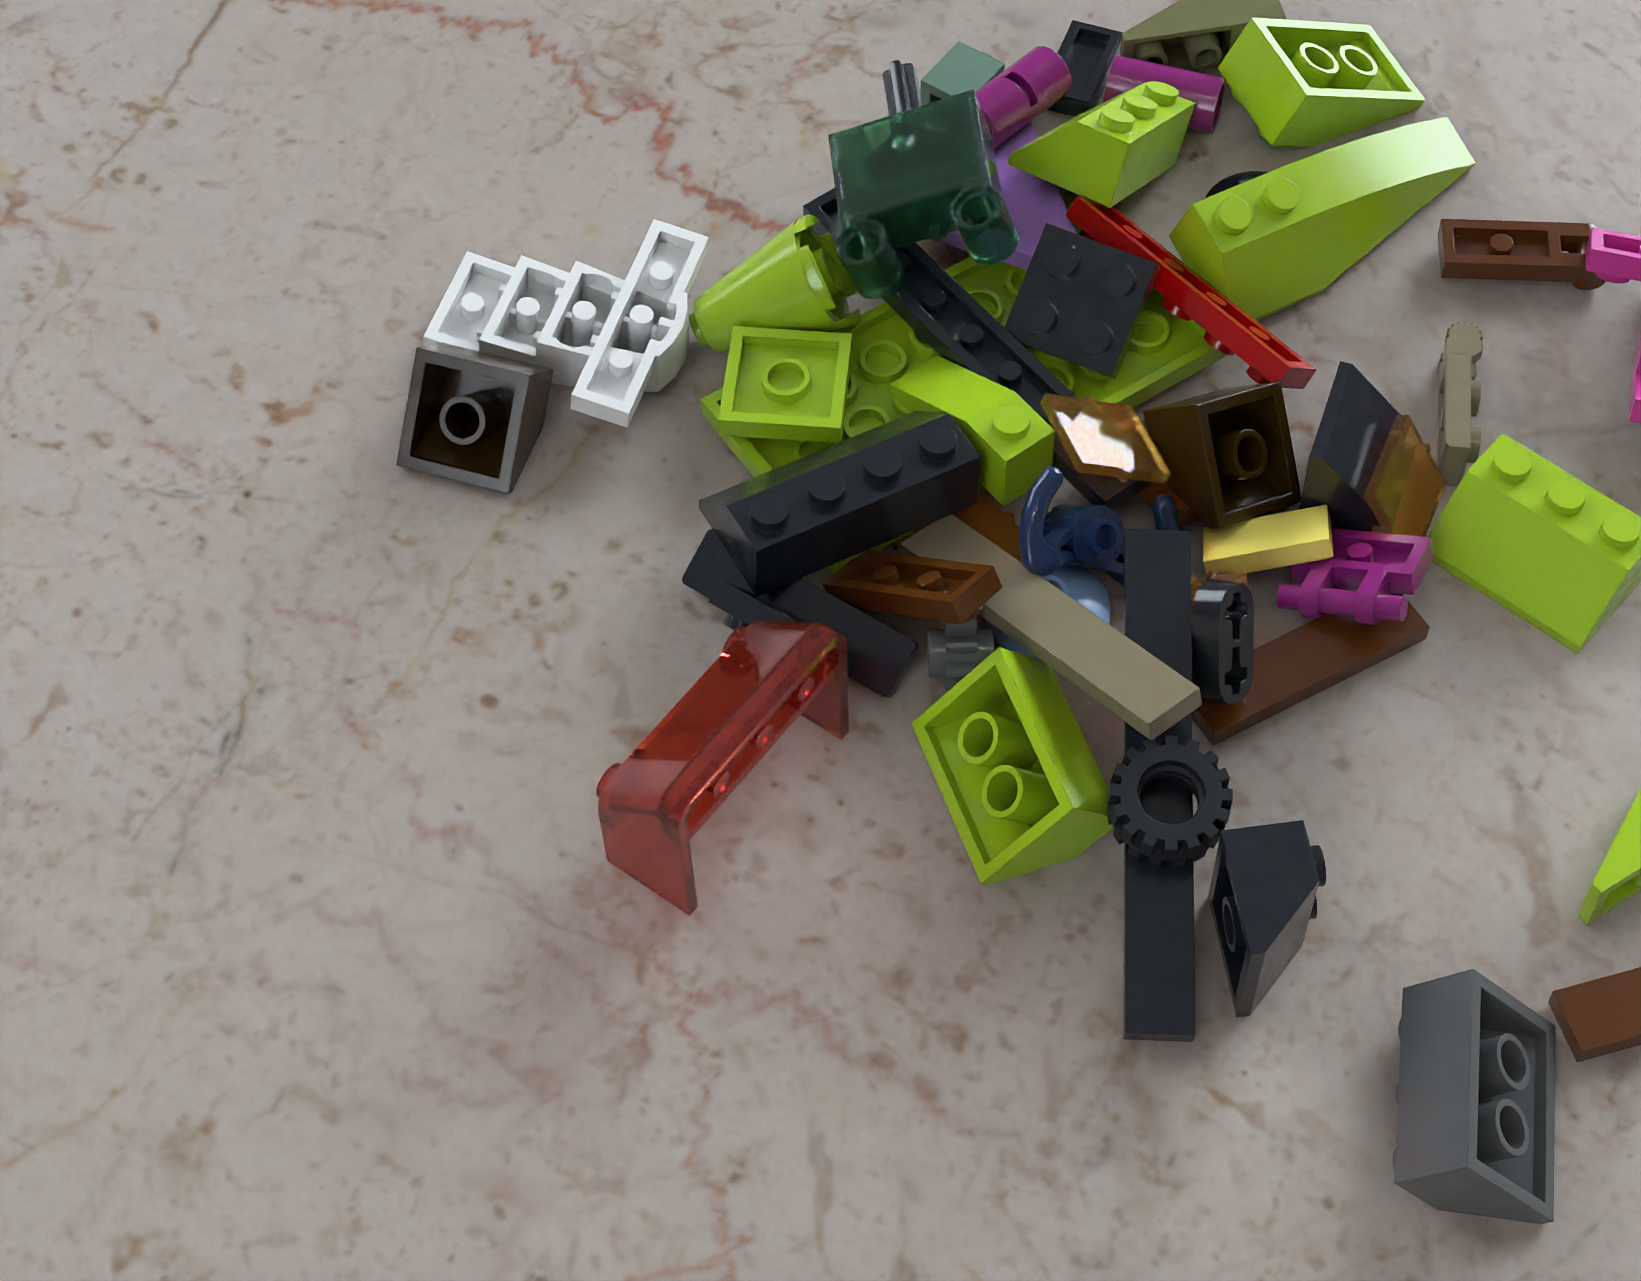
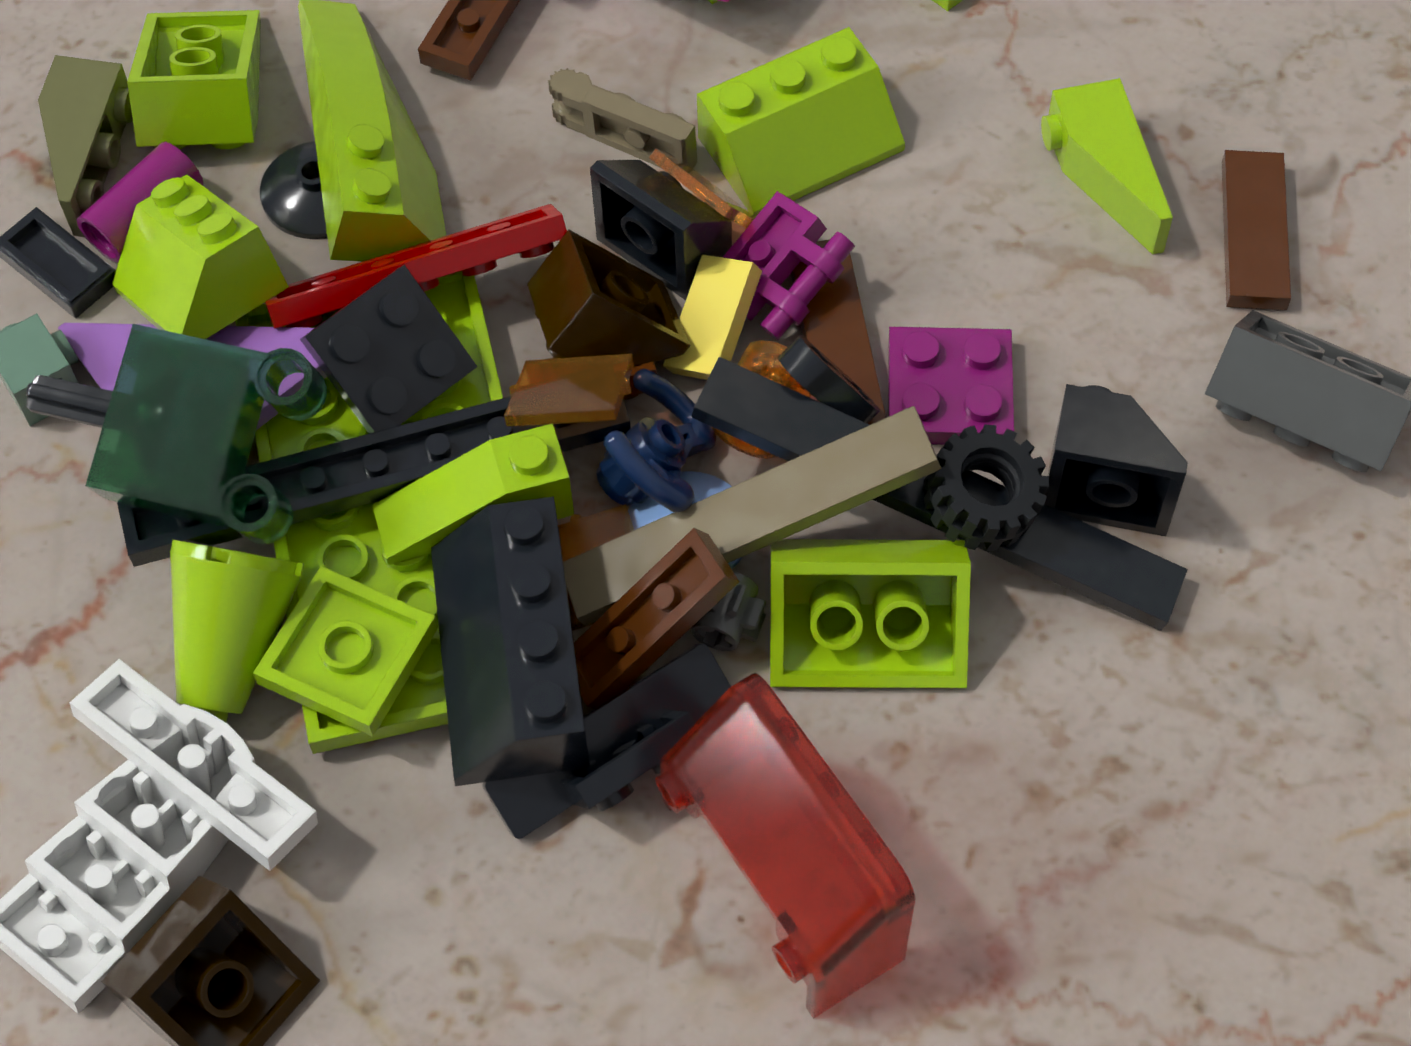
camera: 70 degrees left, 5 degrees up
(1023, 92) = (86, 319): magenta pin -> none
(1310, 768) = (952, 378): none -> magenta plate

